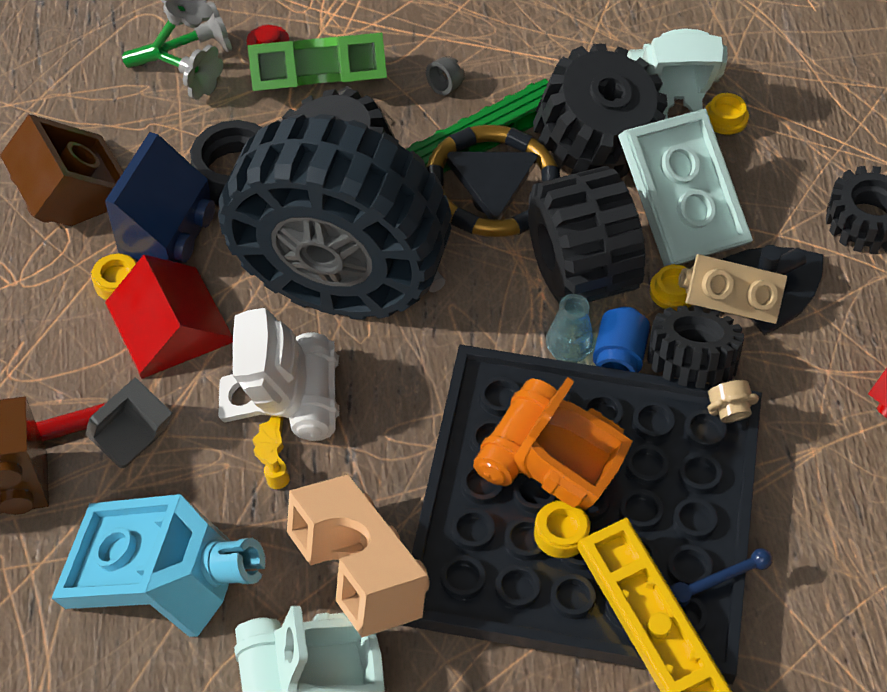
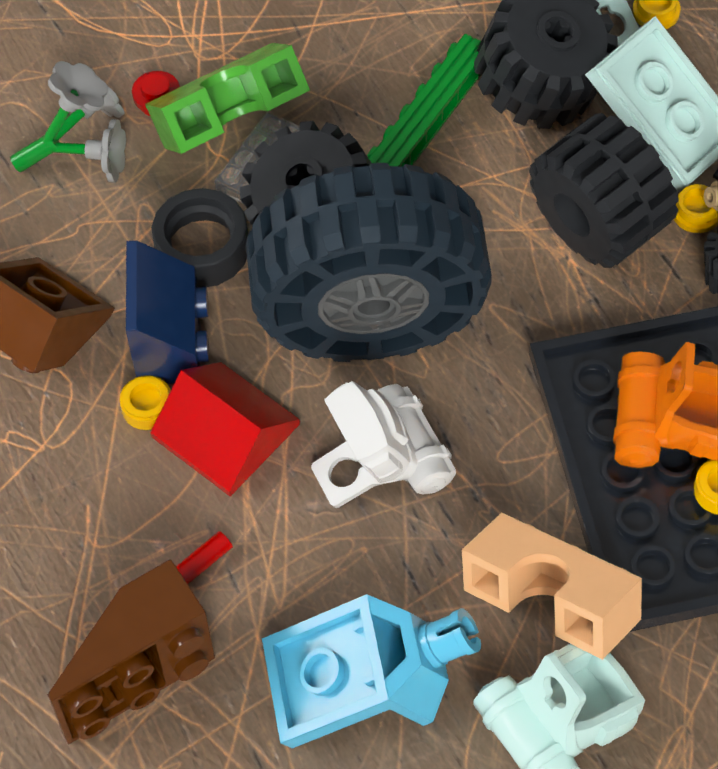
camera: 20 degrees left, 5 degrees up
(128, 423) = (256, 545): dark grey panel -> none
(267, 447) = (398, 518): yellow piece -> none
(438, 81) = (358, 75): dark grey hinge -> none
(491, 176) = (476, 156): piece -> none
(571, 331) = (627, 291): clear light blue cone -> none
(622, 340) = (678, 281): blue brick -> none

